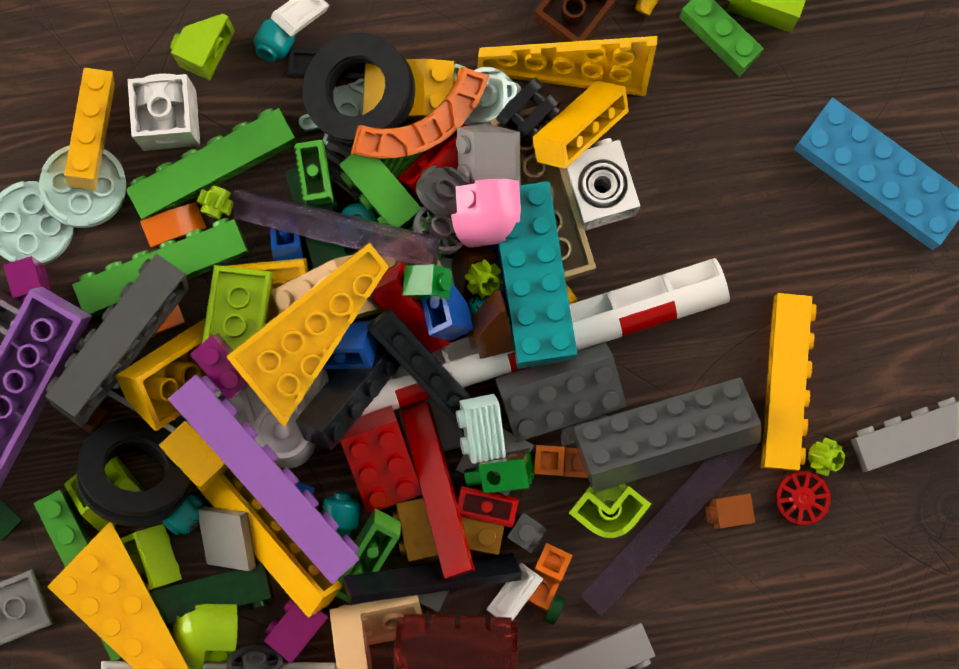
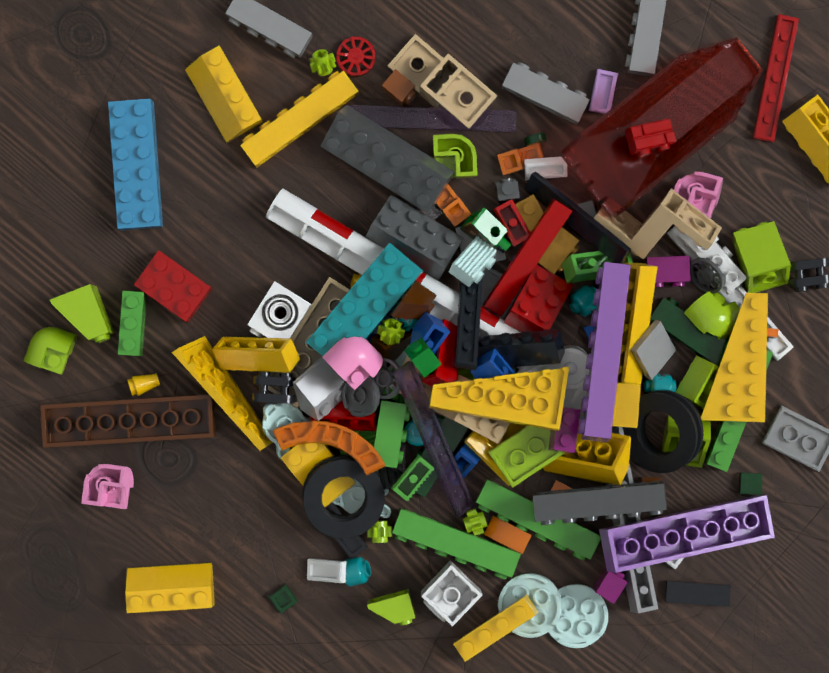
camera: 130 degrees left, 5 degrees up
(290, 98) = (380, 532): none -> lime gear
(699, 562) = (443, 81): none -> tan bracket
(723, 105) = (173, 286): none -> red brick
(880, 327) = (223, 94): none -> yellow slope

